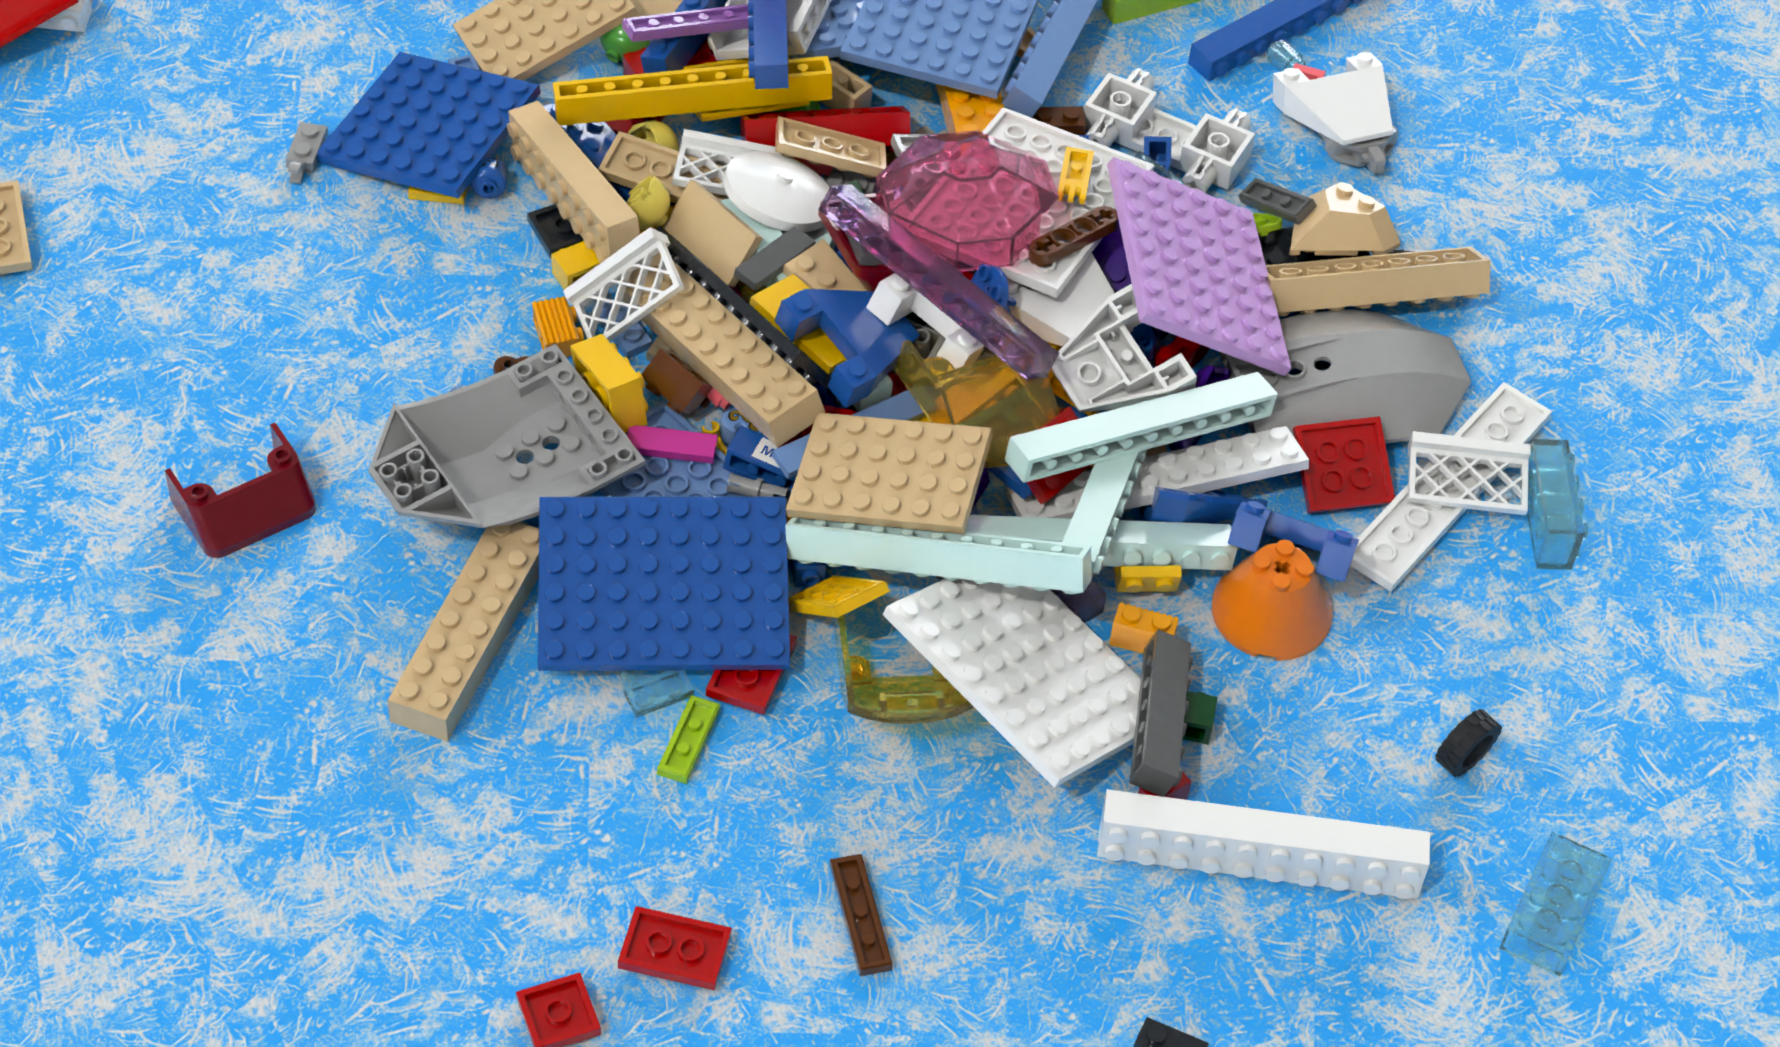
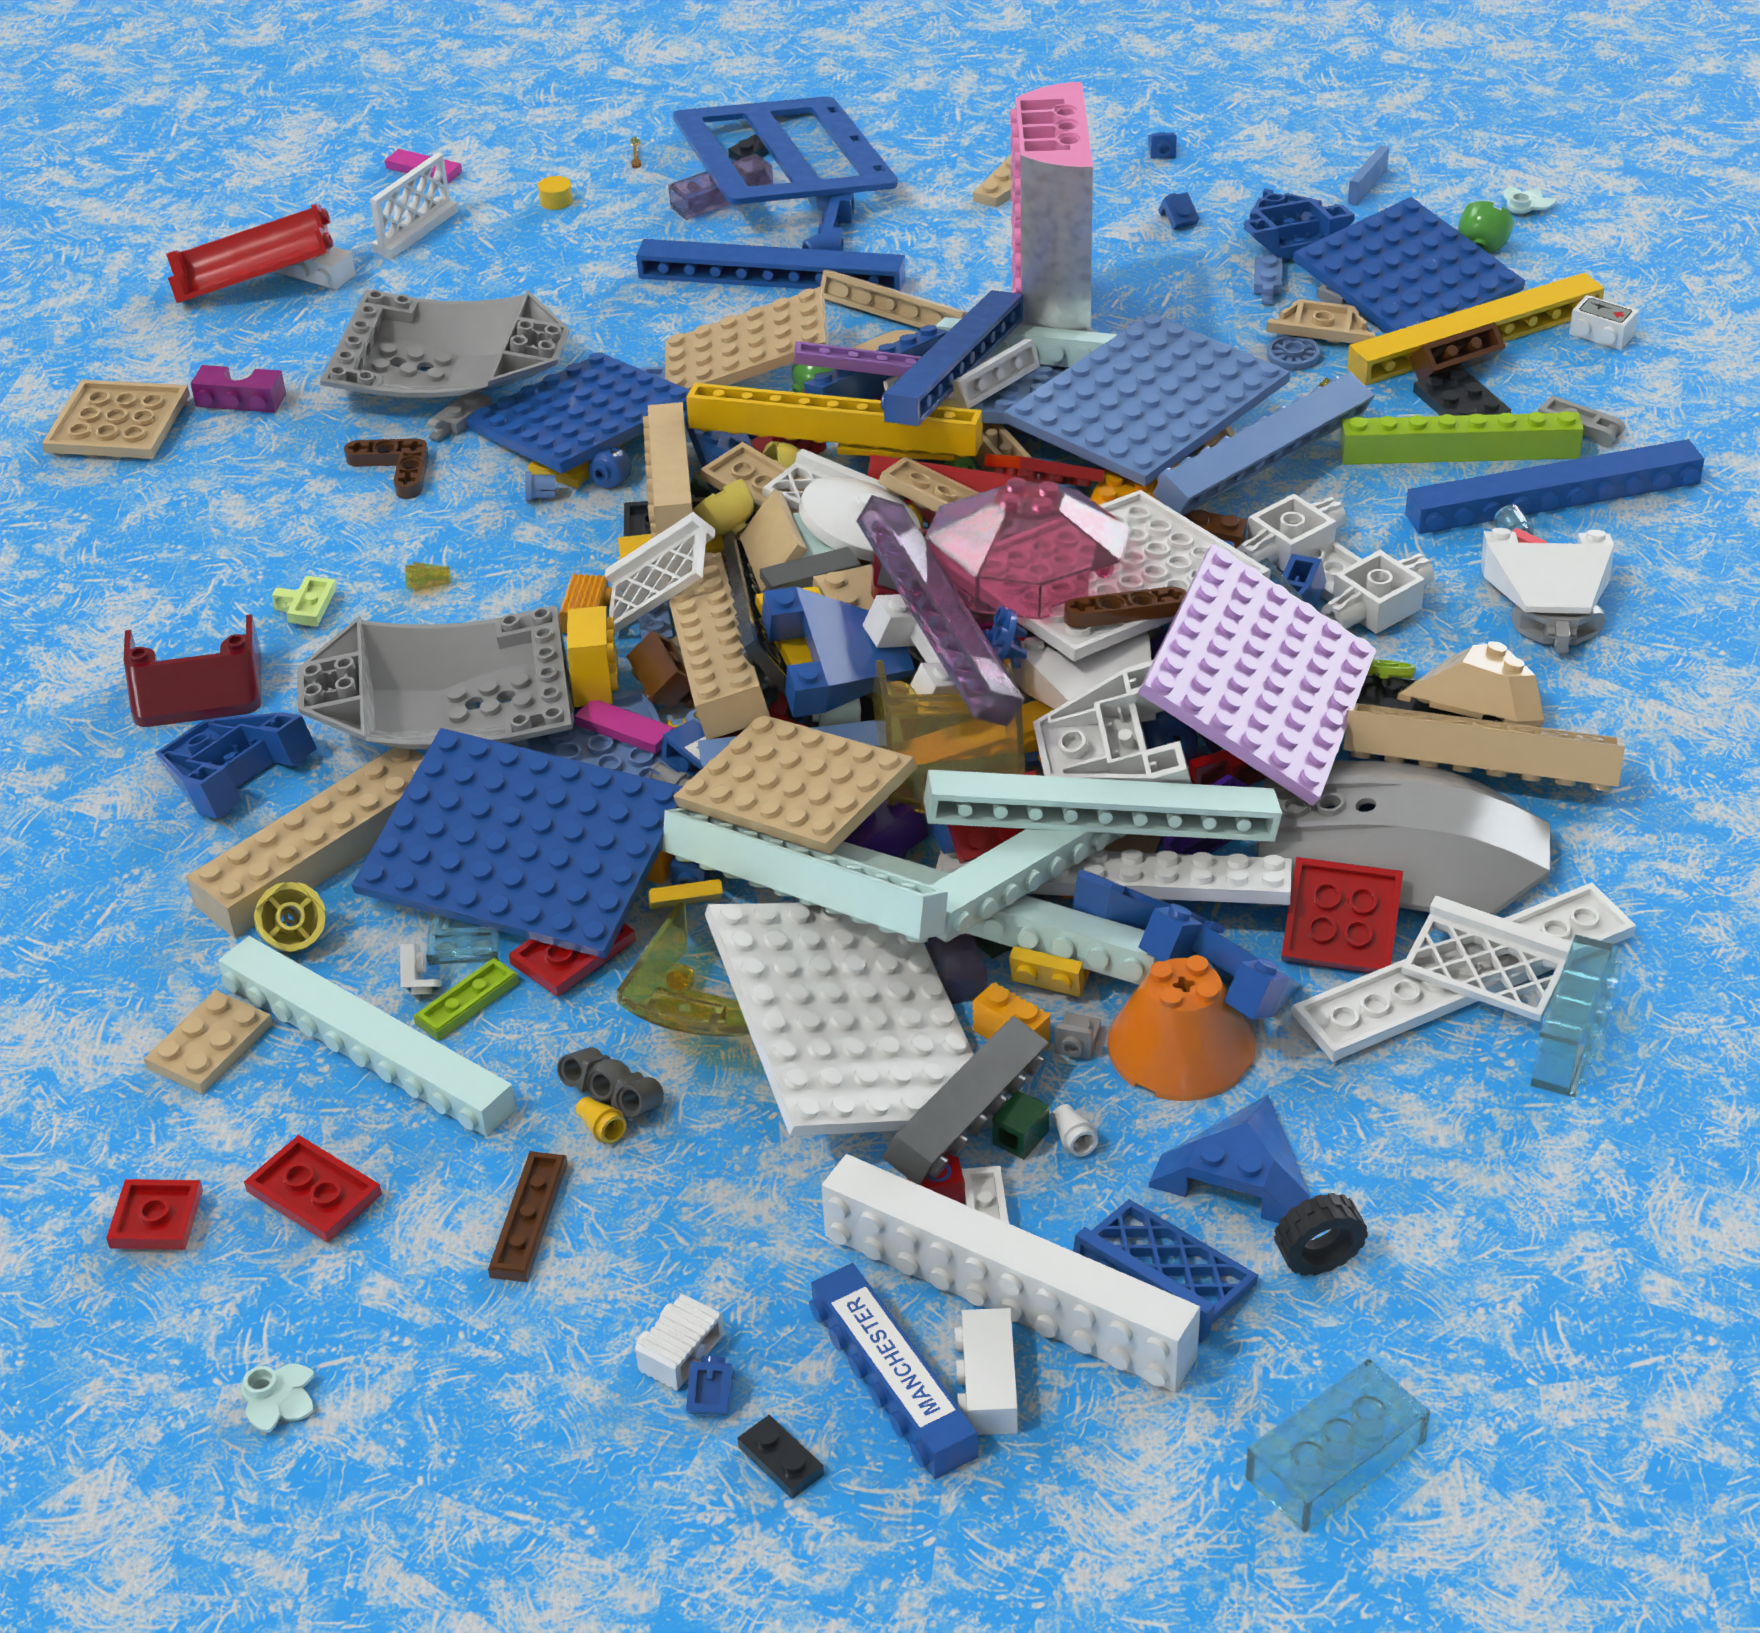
camera: 30 degrees right, 10 degrees down
(91, 174) = (259, 392): none -> magenta arch
(283, 211) = (402, 453): none -> reddish brown beam
(286, 71) = (463, 343): none -> light grey wedge
(293, 389) = (308, 602): none -> yellowish green hinge
(322, 566) = (228, 751): none -> blue wedge
(386, 335) = (425, 576): none -> clear yellow cone
(434, 213) = (539, 486): none -> medium blue bush
(493, 845) = (208, 1041): none -> tan plate
(502, 711) = (301, 905): none -> light yellow cylinder
(629, 798) = (368, 1036): none -> light aqua brick
(634, 723) = (411, 966): none -> white bracket
(872, 814) = (603, 1121): none -> yellow cone
(877, 779) = (610, 1082): none -> dark grey piece
(897, 99) = (1042, 469): none -> red plate
(1047, 981) = (680, 1336): none -> white brick
(1075, 174) = (1167, 556): yellow hinge -> none
(1091, 1009) = (709, 1386): none -> blue bracket
(1195, 625) = (1077, 1035): none -> light grey bracket
(1205, 784) = (986, 1191): none -> white plate
(1217, 950) = (894, 1371): none -> blue brick
(1239, 710) = (1076, 1133): none -> white cone
(1277, 201) = (1419, 649): dark grey tile -> none
(1286, 928) = (987, 1370): none -> white brick
(1328, 807) = (1123, 1259): none -> blue fence
(1368, 693) = (1239, 1154): none -> blue wedge

